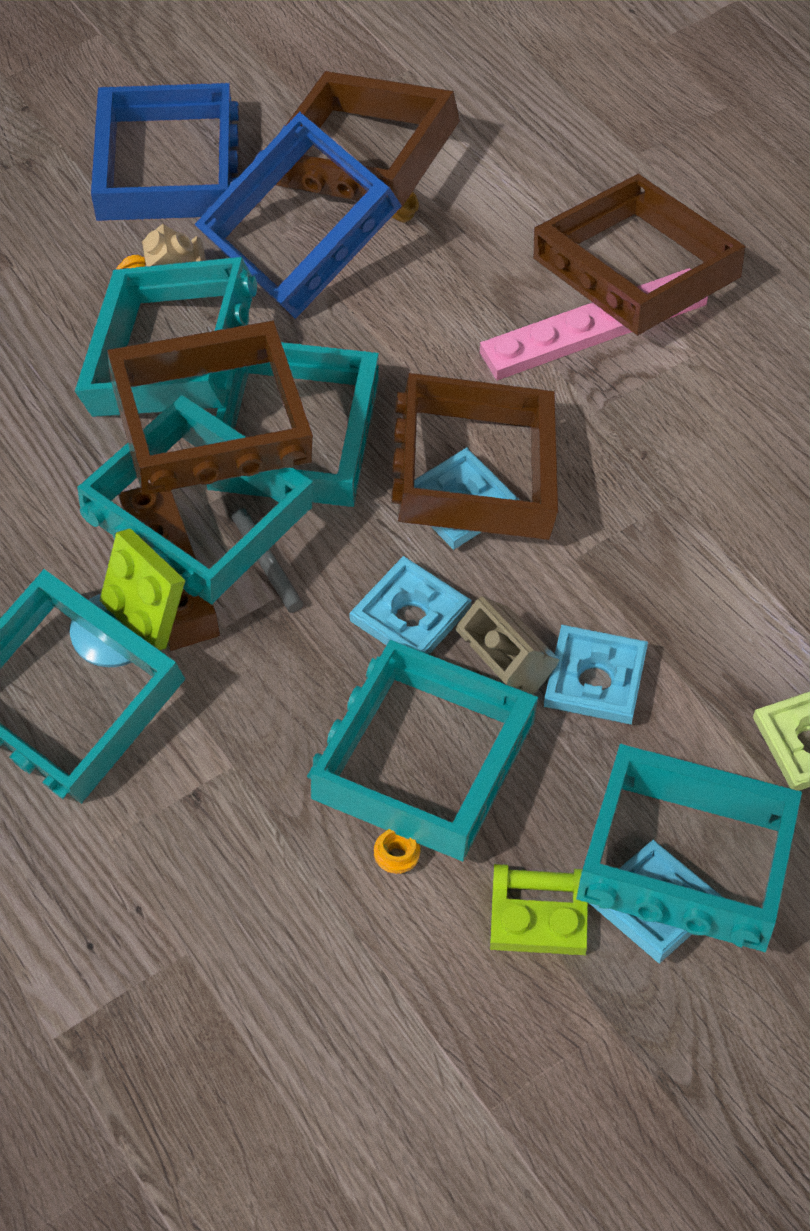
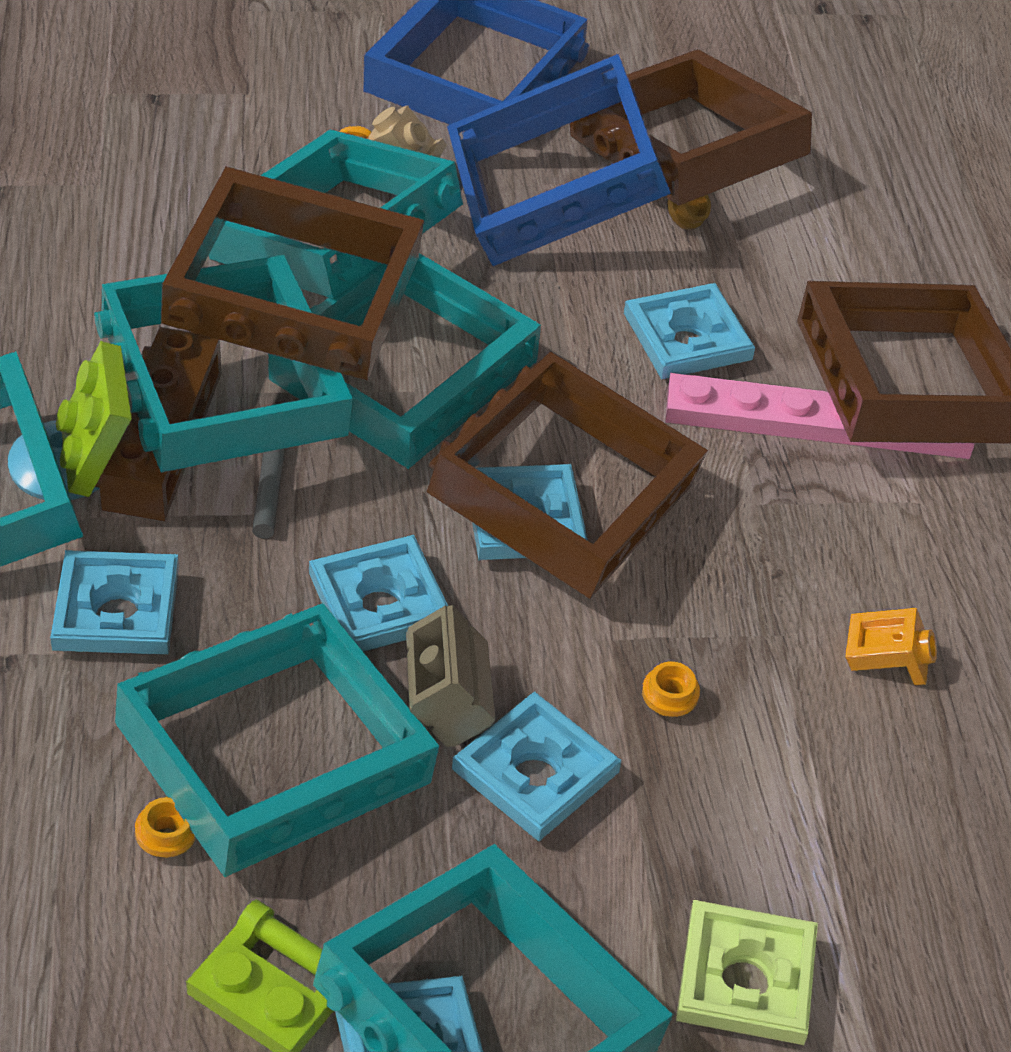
camera: 25 degrees right, 10 degrees down
(241, 687) = (98, 577): none -> medium azure piece
(468, 284) = (692, 310): none -> medium azure piece
(640, 565) = (673, 678): none -> light orange plate
(751, 467) = (891, 641): none -> light orange bracket

